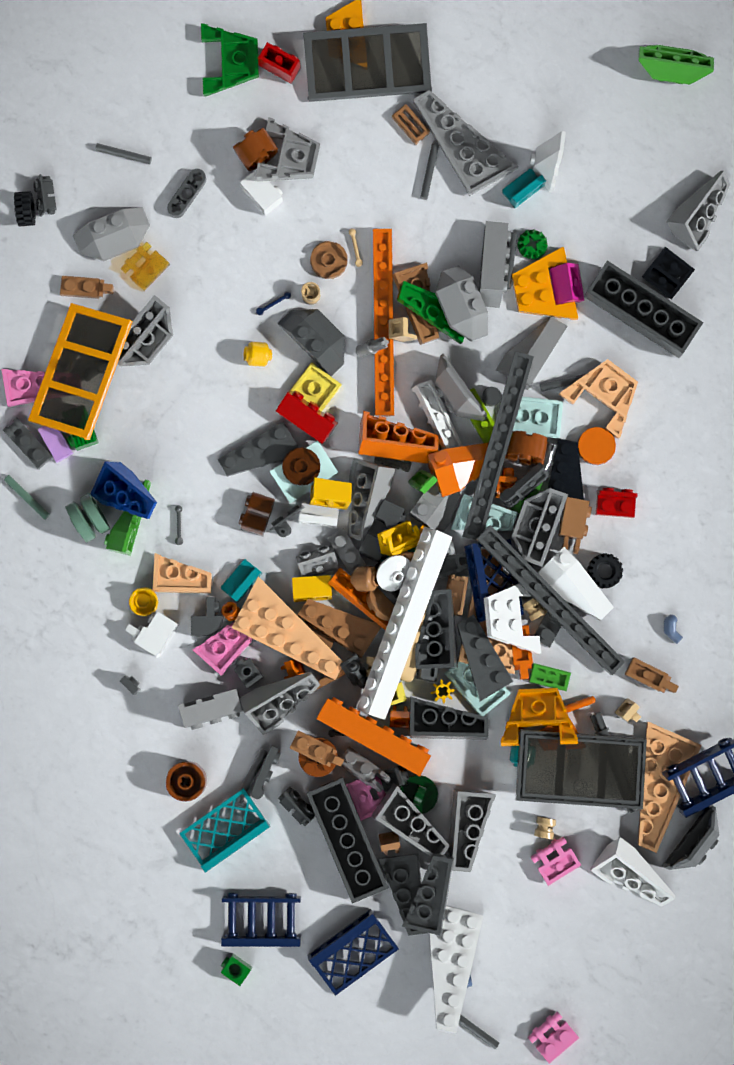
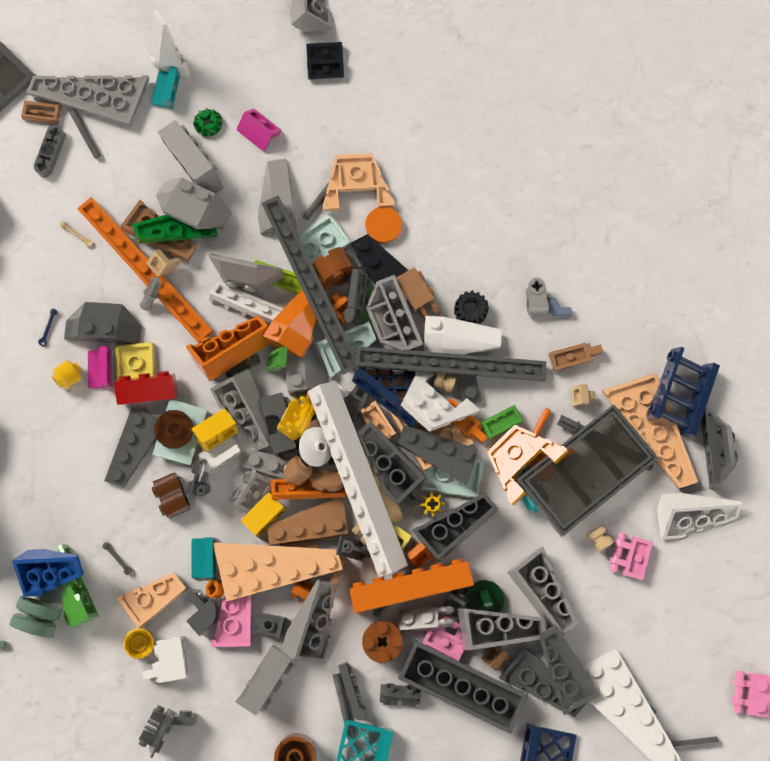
camera: 40 degrees left, 5 degrees down
(97, 682) = (163, 726): none -> dark grey hinge
(285, 369) = (100, 368): none -> dark pink panel
(310, 289) = (66, 291): tan wheel -> none
(315, 749) = (375, 637): medium nougat hinge -> none
(328, 260) = (63, 260): medium nougat tile -> none
(404, 160) = (40, 162): none -> dark grey beam
(491, 396) = (274, 255): dark grey tile -> none
(512, 244) = (192, 132): dark grey bar -> none
(535, 291) = (238, 152): light orange wing -> none
(616, 503) = (434, 253): red bracket -> none
(643, 309) = (329, 98): dark grey brick -> none
(660, 610) = (536, 300): none -> light grey piece

